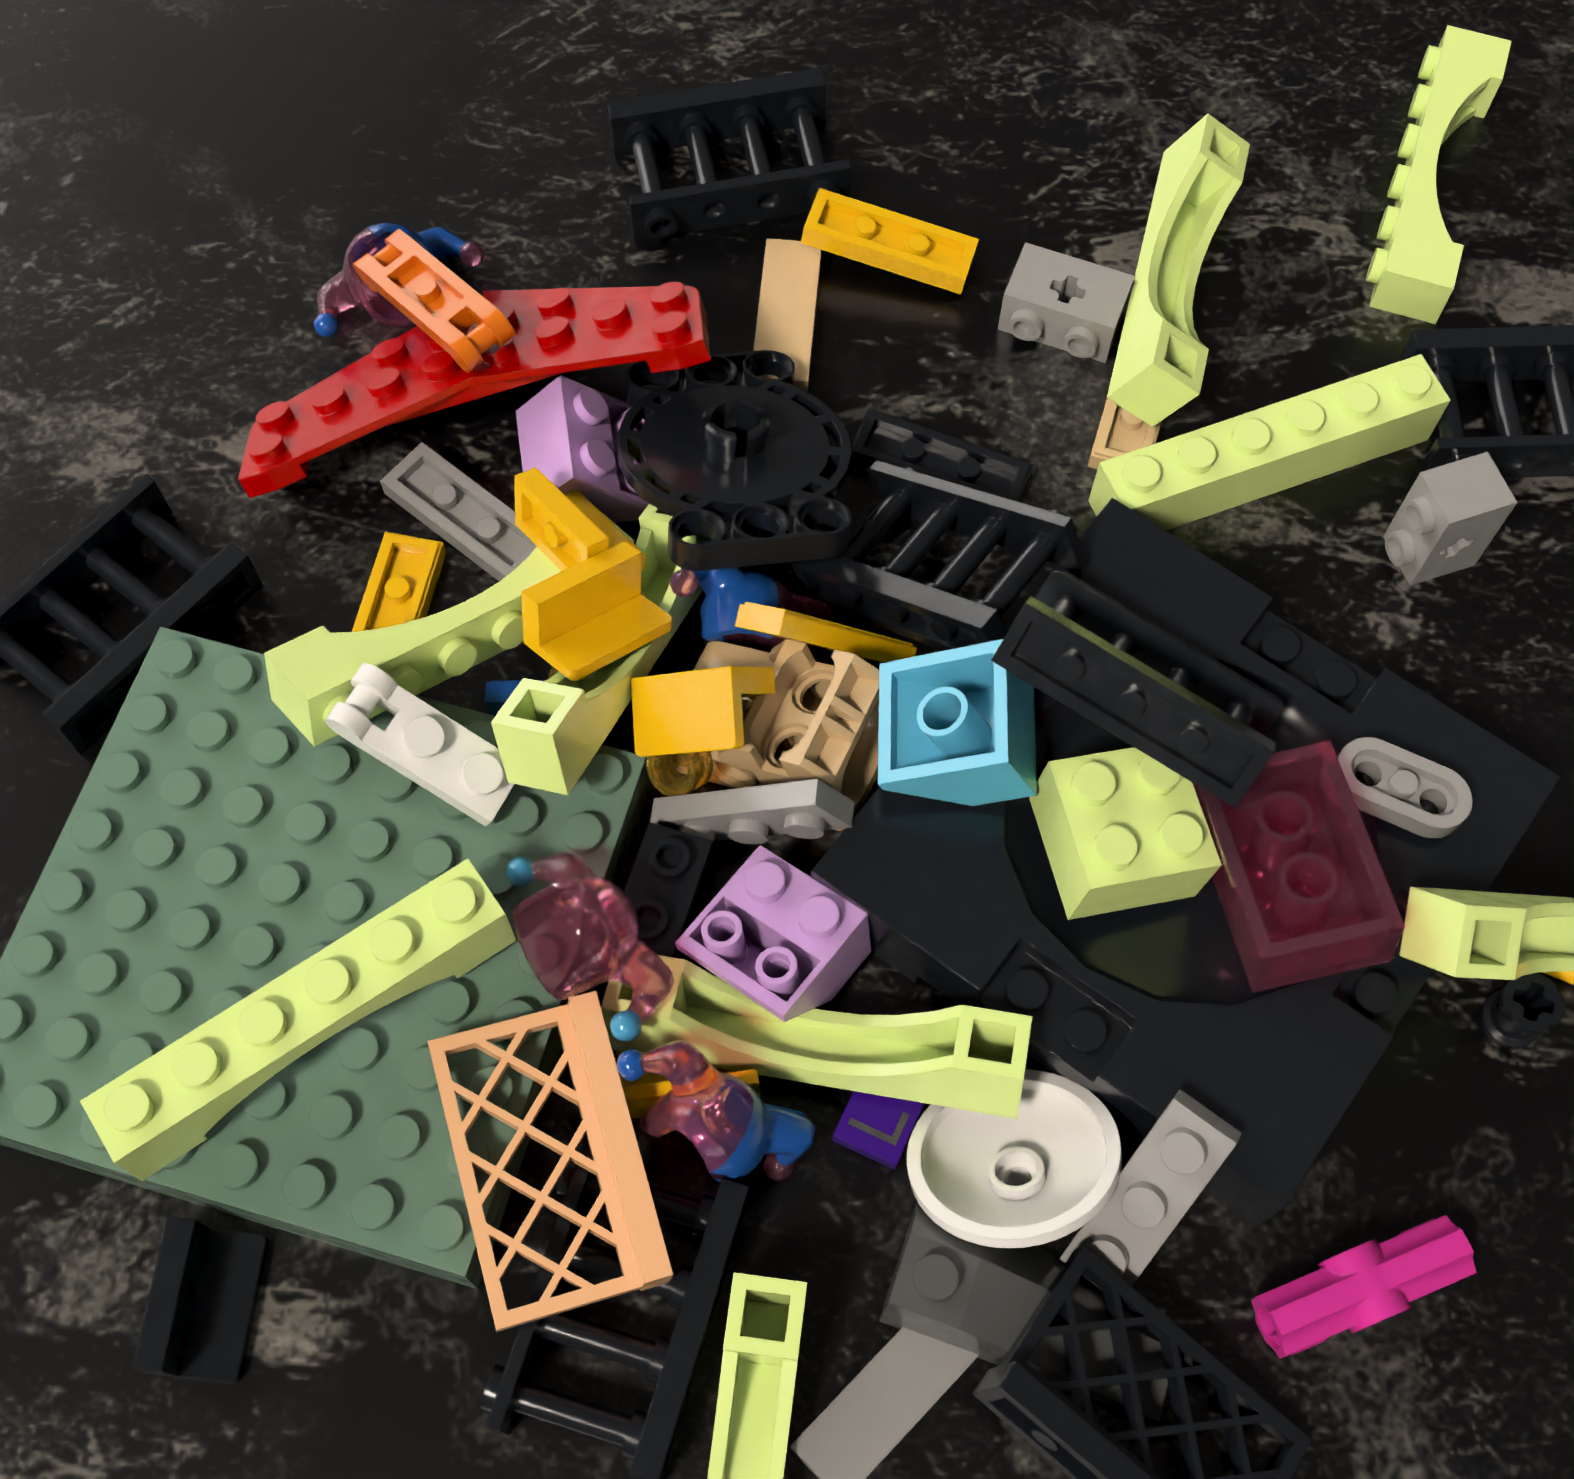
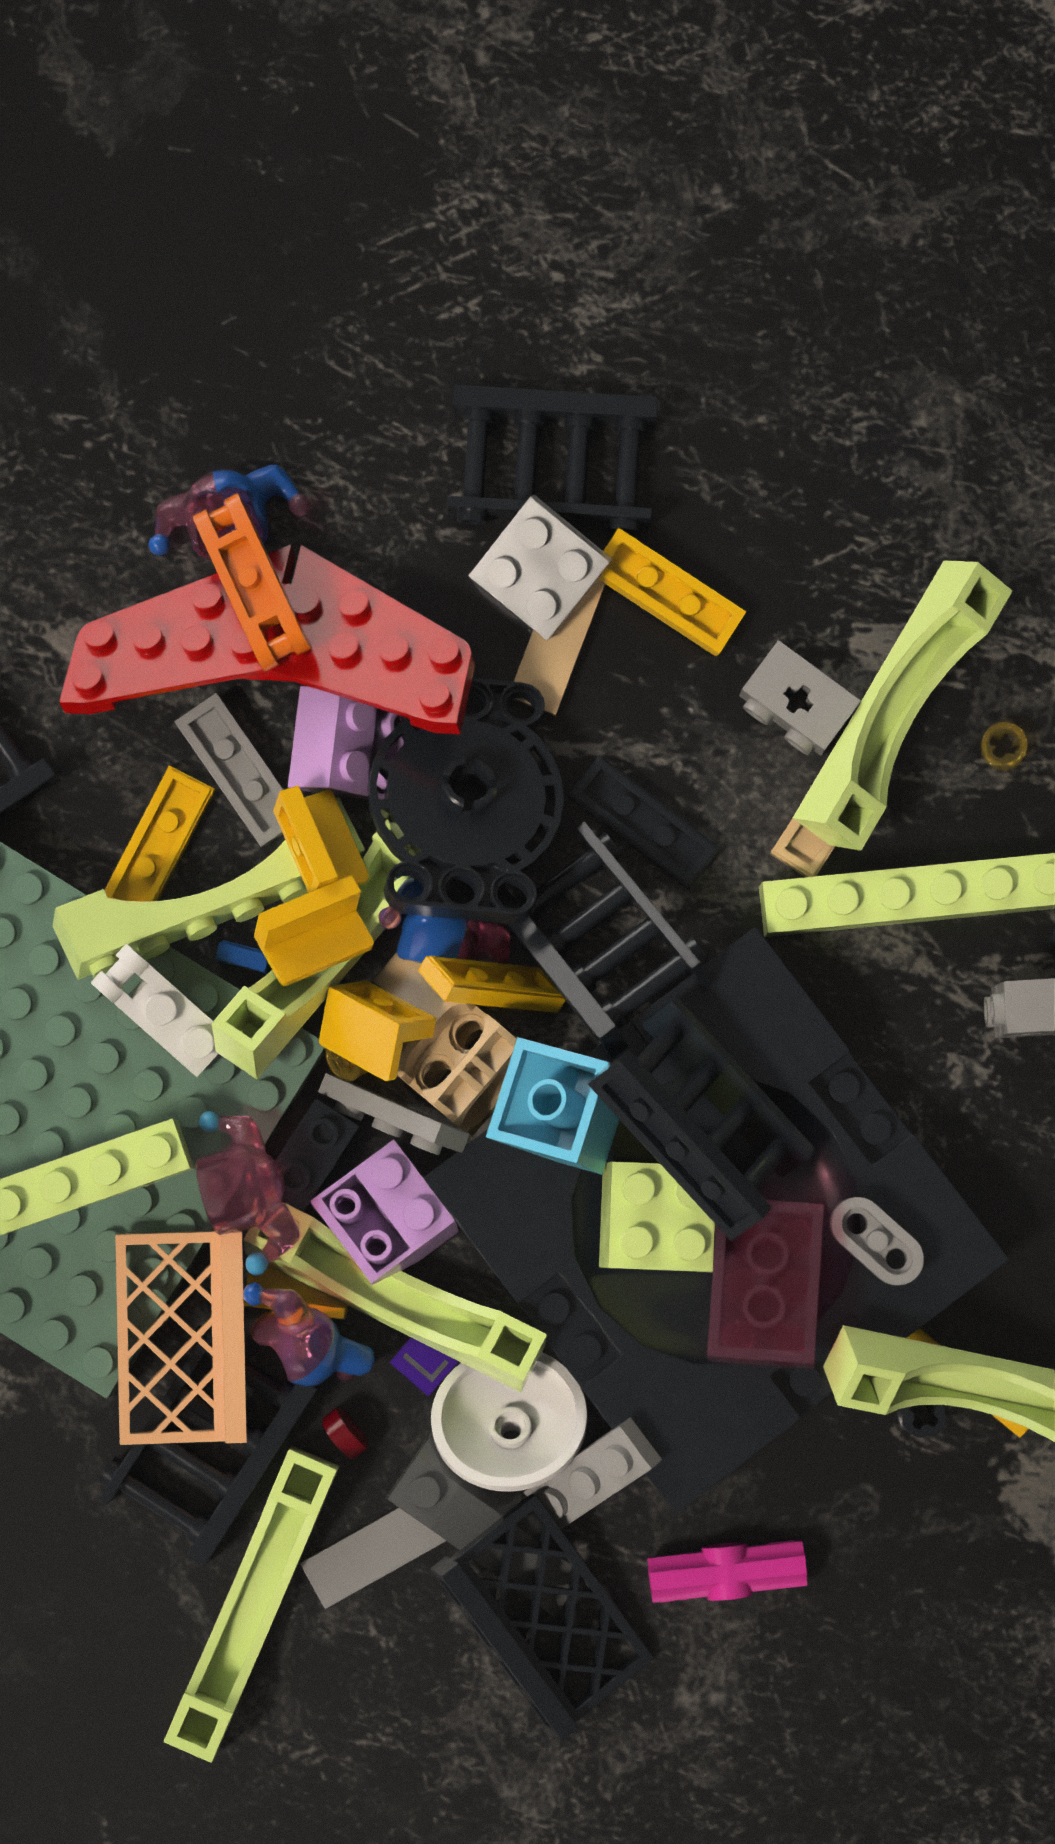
camera: 15 degrees right, 20 degrees up
(748, 237) = (540, 567): none -> plate
(801, 1244) = (344, 1433): none -> dark red tile
(1293, 319) = (1008, 761): none -> clear yellow bush

